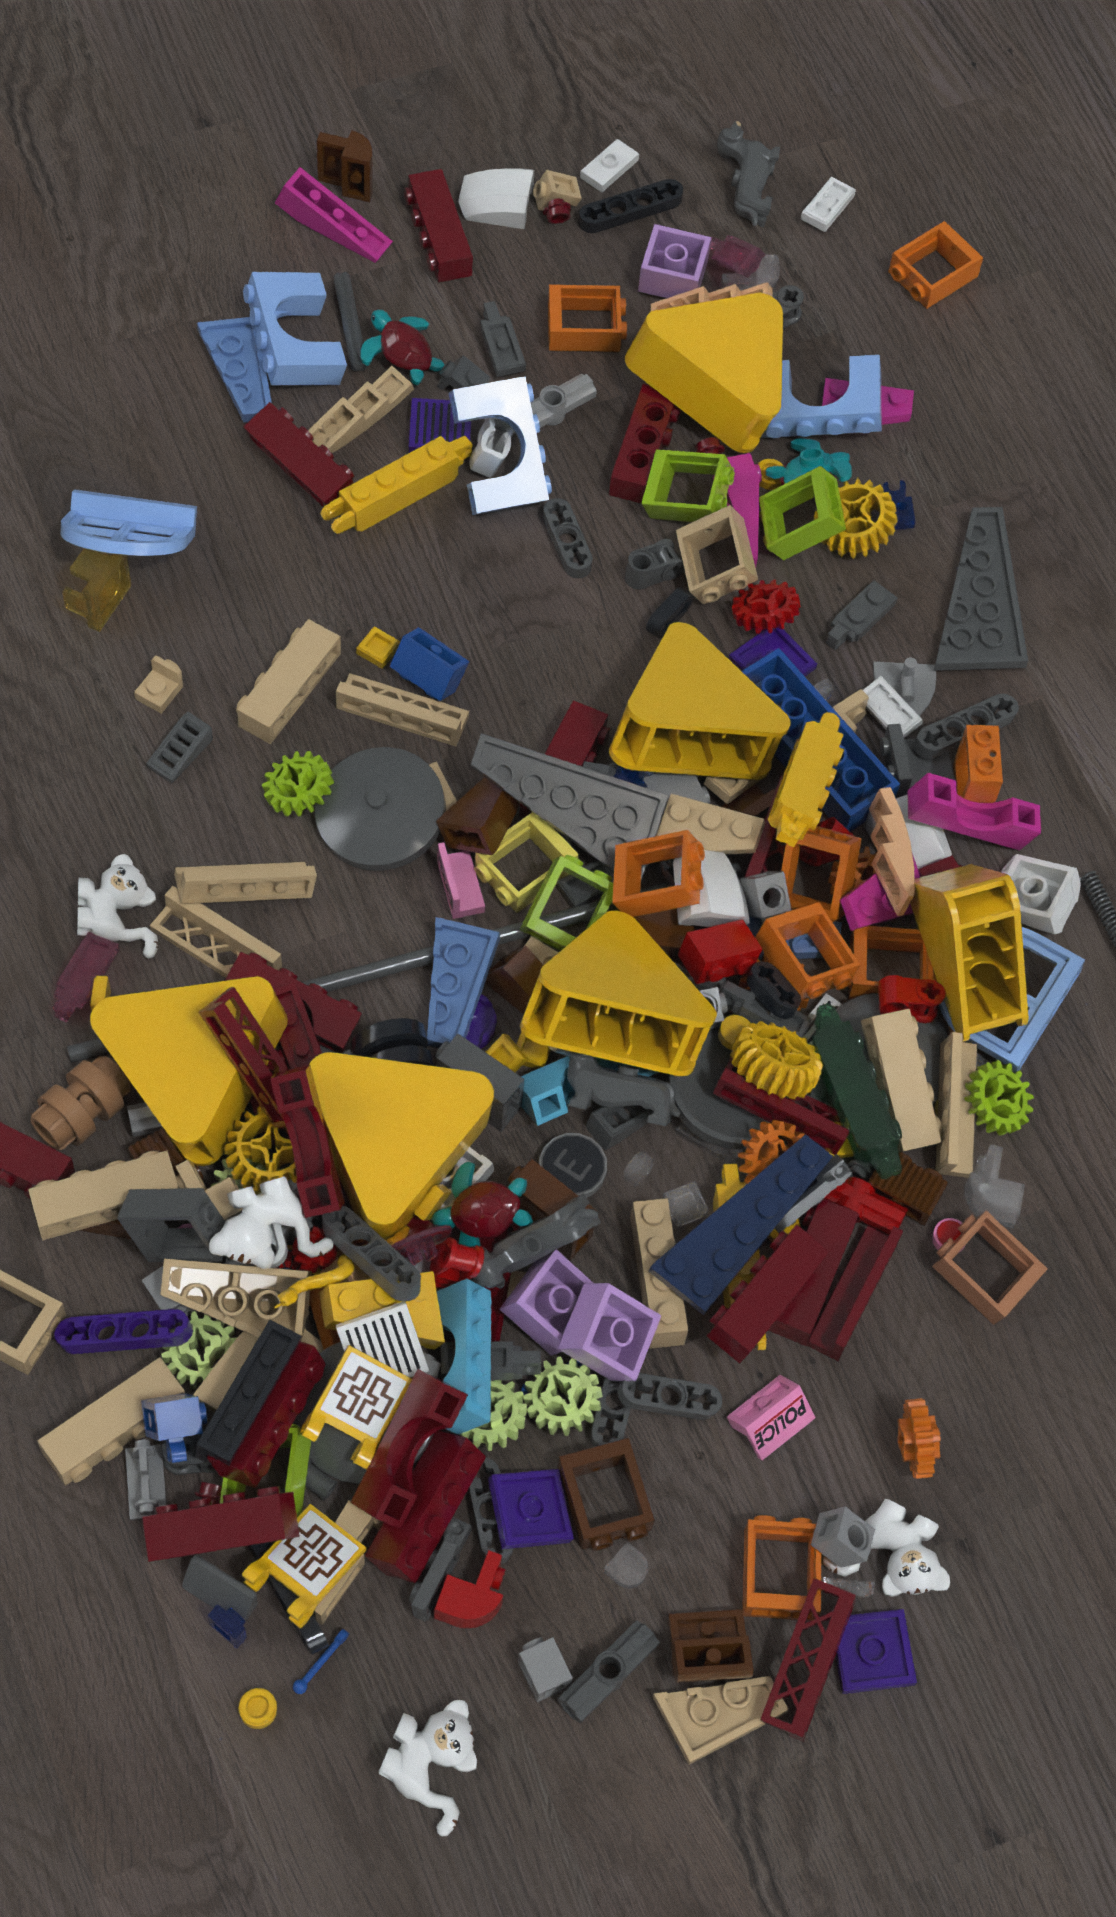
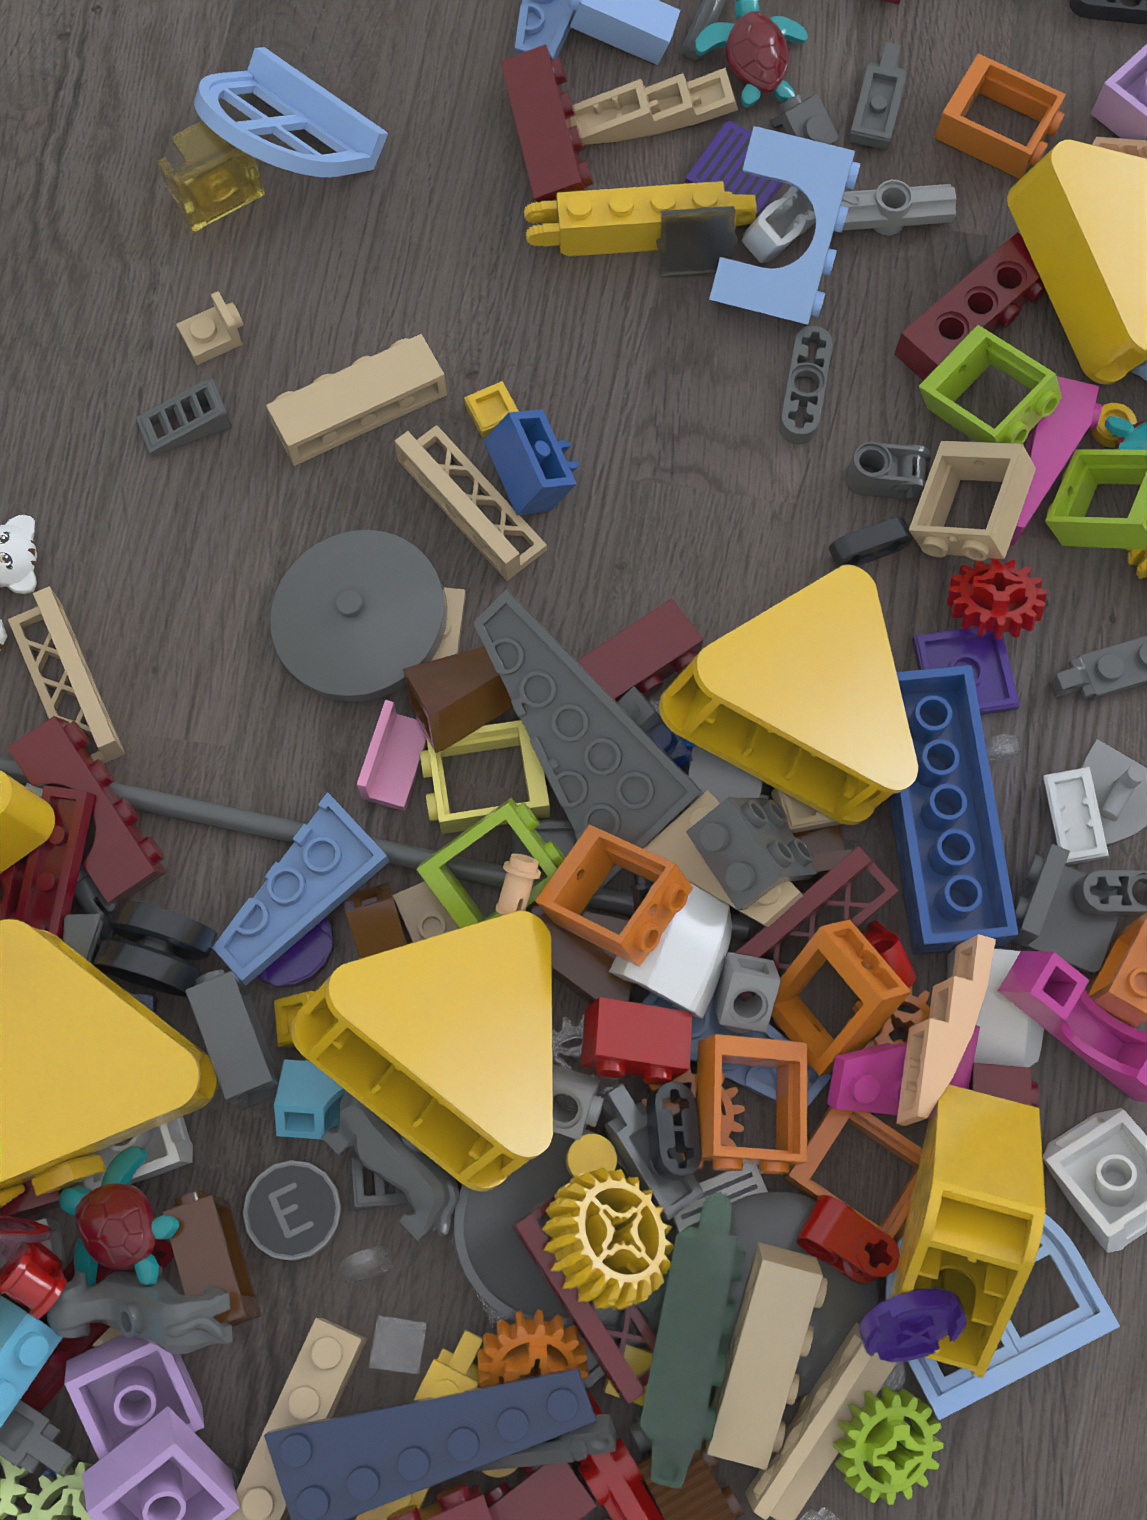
camera: 35 degrees right, 10 degrees up
(245, 882) = (131, 629): tan fence -> none
(282, 787) = (281, 533): lime gear -> none
(444, 481) = (695, 239): none -> clear smoke piece
(595, 899) = (517, 883): none -> light nougat pin
(710, 445) = (1054, 356): dark red plate -> none
(716, 812) = (750, 848): none -> dark grey bracket
(805, 780) = (880, 874): yellow hinge -> none
(852, 708) = (1022, 793): tan bracket -> none
(974, 999) = (912, 1324): none -> dark purple tile

